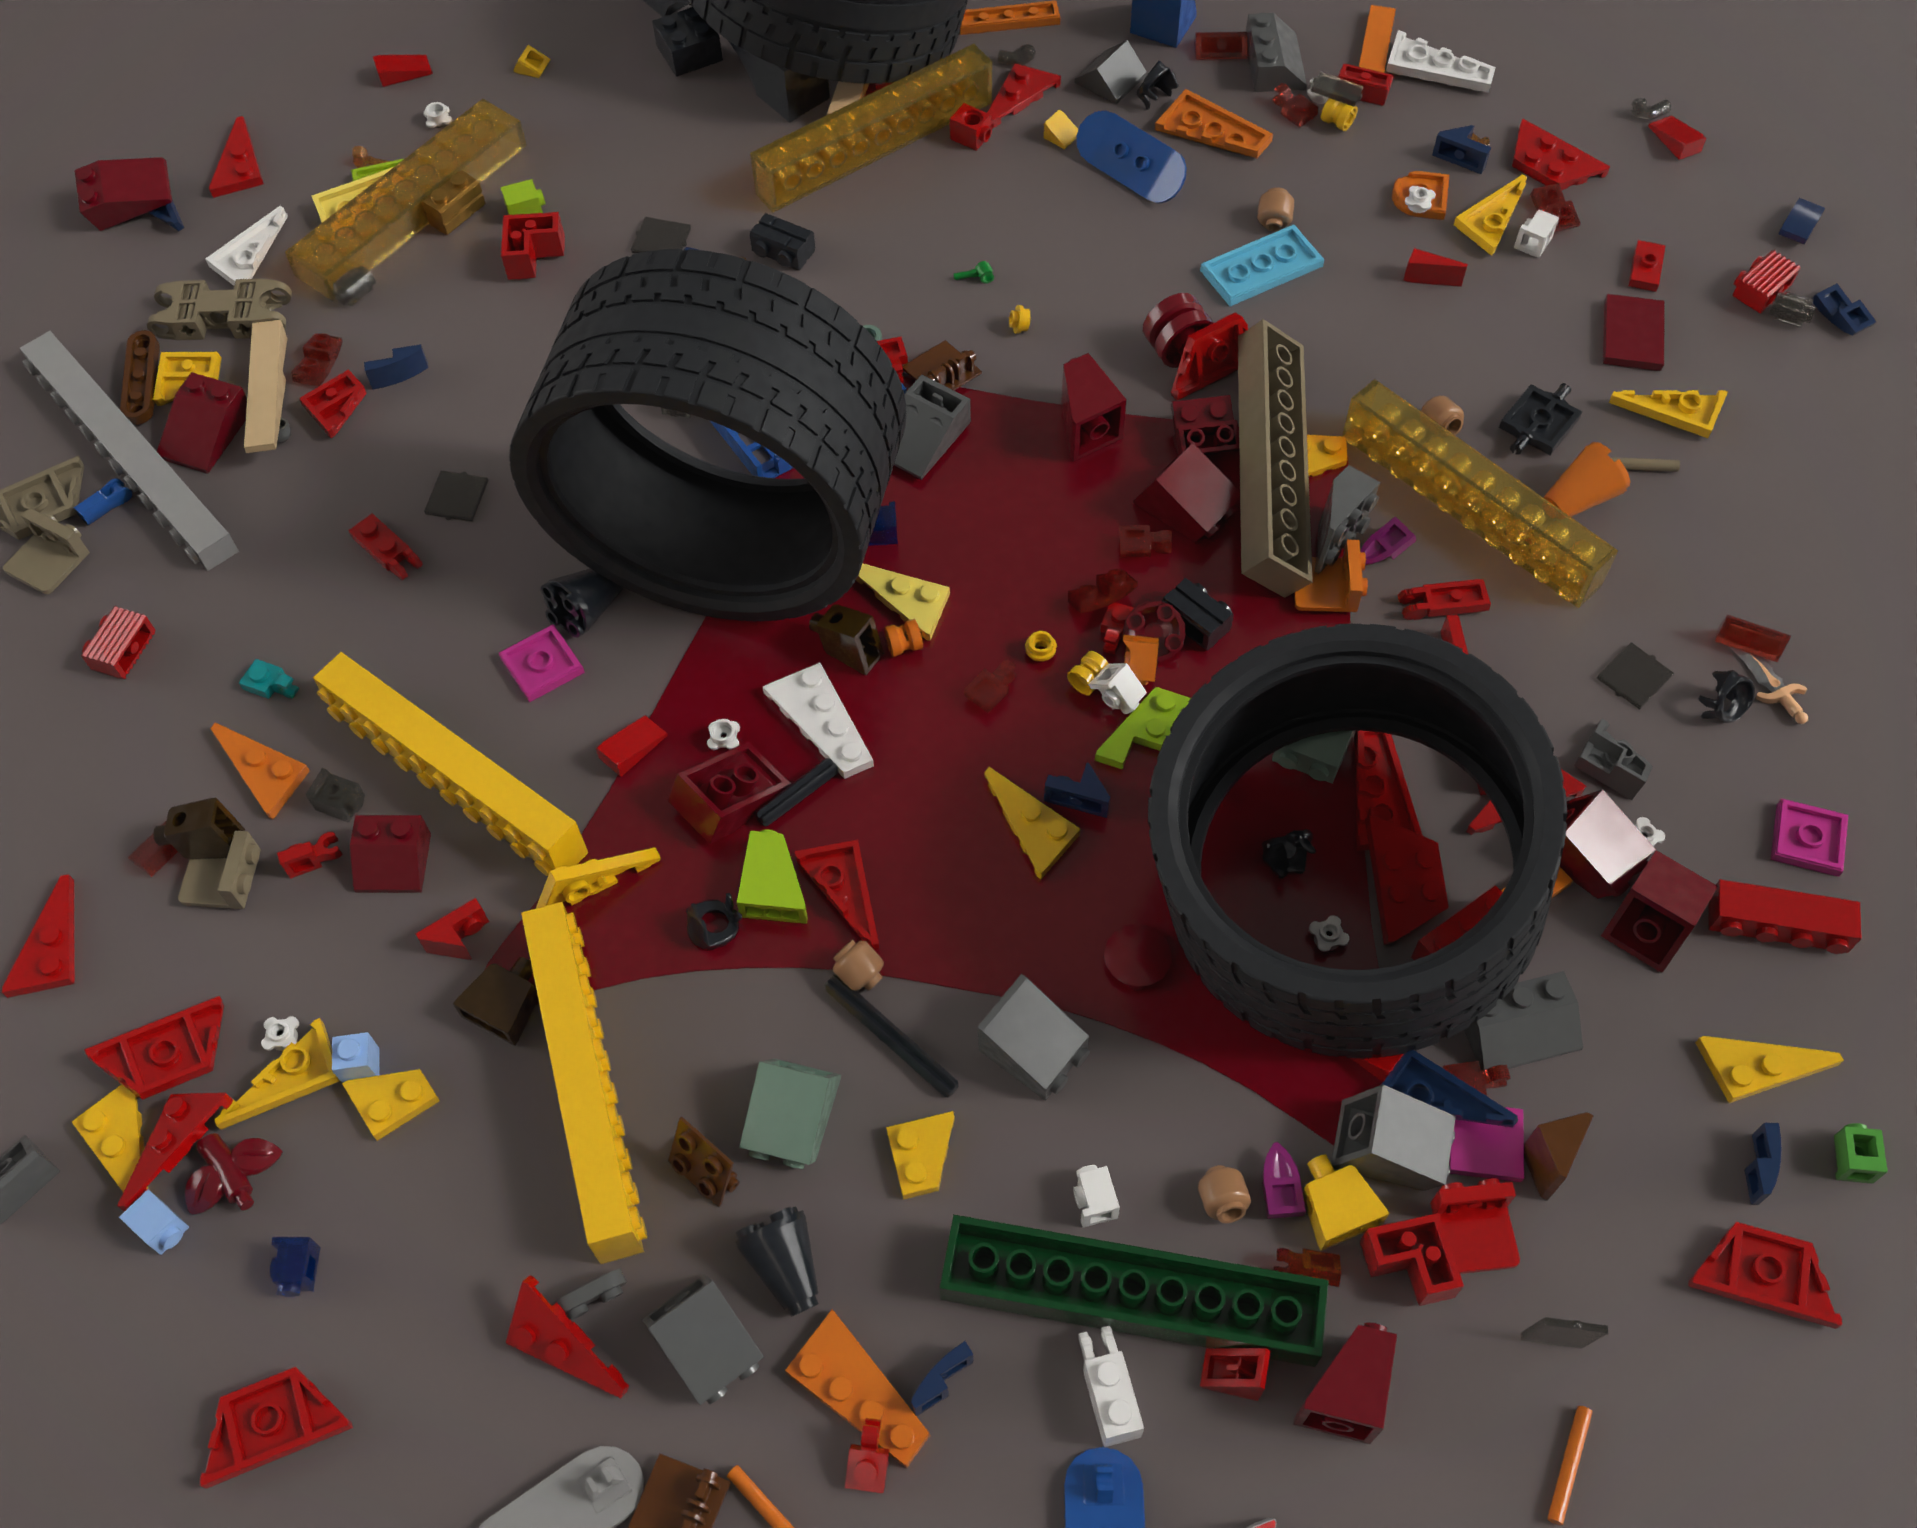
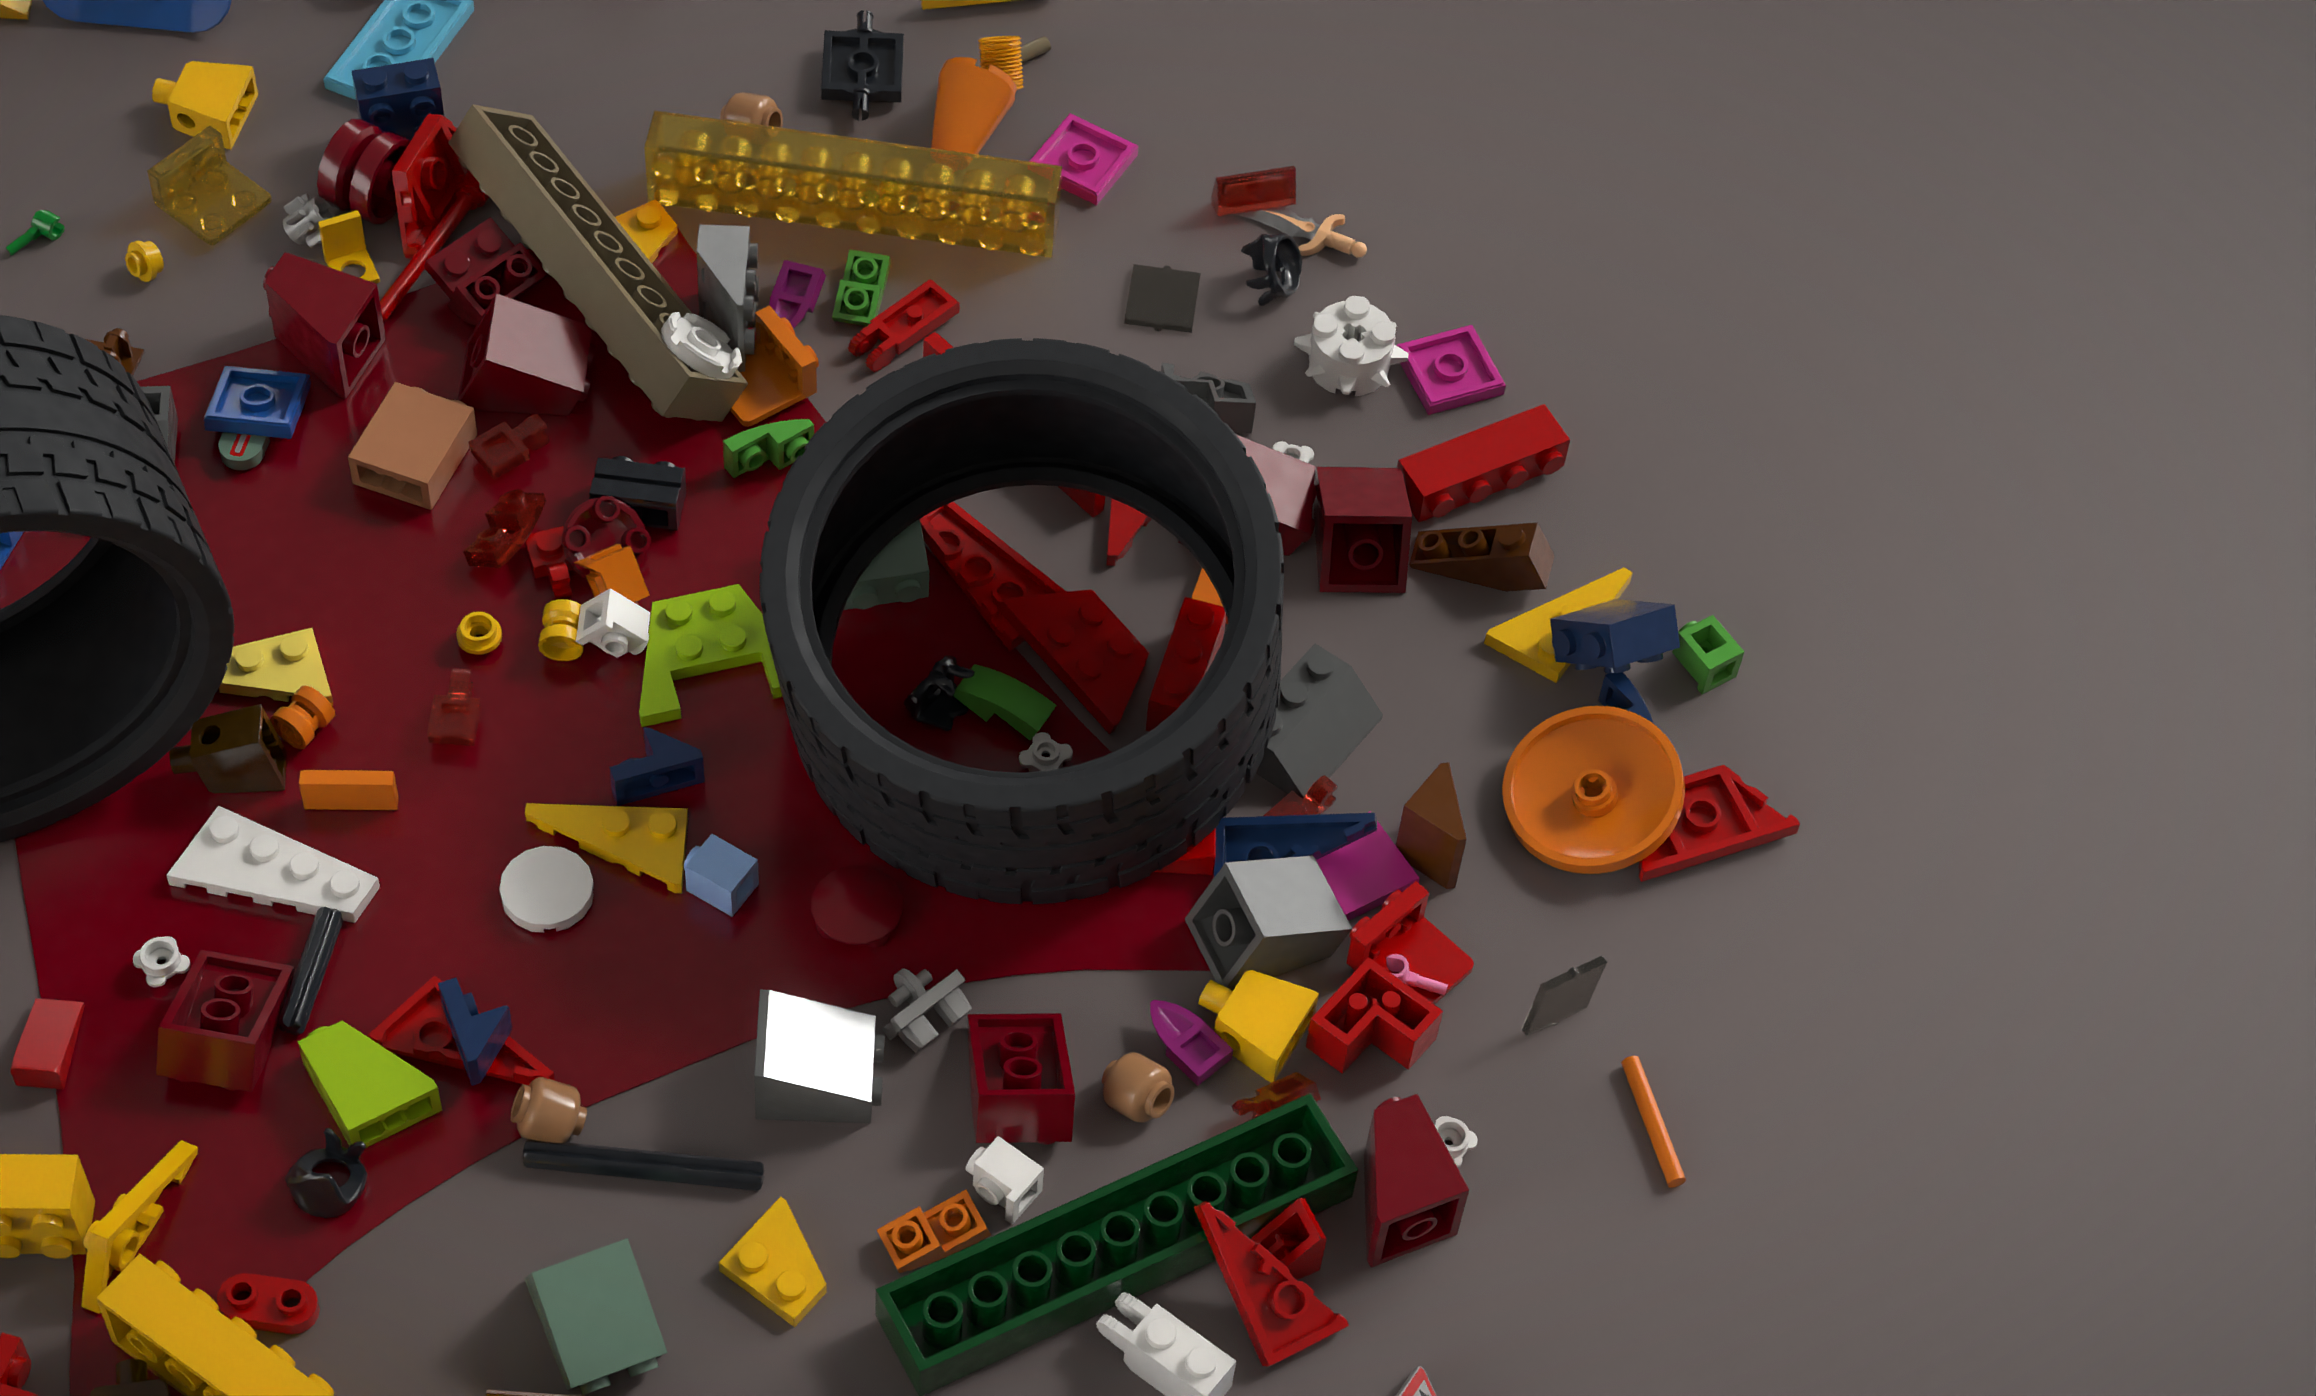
camera: 45 degrees left, 5 degrees down
(625, 974) = (265, 1305): none -> red plate
(847, 891) = (475, 1034): none -> dark blue slope
(895, 696) = (348, 790): none -> orange tile
(963, 827) = (546, 889): none -> white tile
(993, 458) = (242, 450): none -> sand green tile
(1019, 436) = (257, 402): none -> blue tile
(1028, 1200) = (935, 1234): none -> orange slope
(1068, 883) = (721, 874): none -> light blue brick
(1084, 294) = (204, 189): none -> clear yellow bracket
(1086, 510) = (413, 445): none -> nougat brick
(1126, 244) = (209, 96): none -> yellow torso
(1128, 343) = (303, 218): none -> light grey gear
(1137, 369) = (345, 244): none -> yellow bracket
(1145, 1050) = (944, 998): none -> light grey hips
(1154, 1135) = (1020, 1078): none -> dark red slope
(1202, 1406) = (1273, 1305): none -> red wing
(1228, 292) = (398, 95): none -> dark blue brick
(1229, 378) = (468, 197): none -> red piece
(1285, 622) = (774, 441): none -> bright green slope
(1294, 542) = (701, 345): none -> white tile
(1329, 880) = (1007, 697): none -> bright green slope
(1420, 1381) = (1458, 1132): none -> white plate
(1436, 561) = (861, 287): none -> bright green slope
(1462, 1243) = (1400, 964): none -> bright pink hand
(1636, 459) = (1004, 54): none -> light orange piece
(1648, 554) = (1088, 156): none -> dark pink tile
(1697, 1199) = (1593, 789): none -> orange dish
(1740, 984) = (1490, 556): none -> reddish brown slope
(1744, 782) = (1351, 347): none -> white brick
(1793, 1099) = (1615, 634): none -> dark blue brick

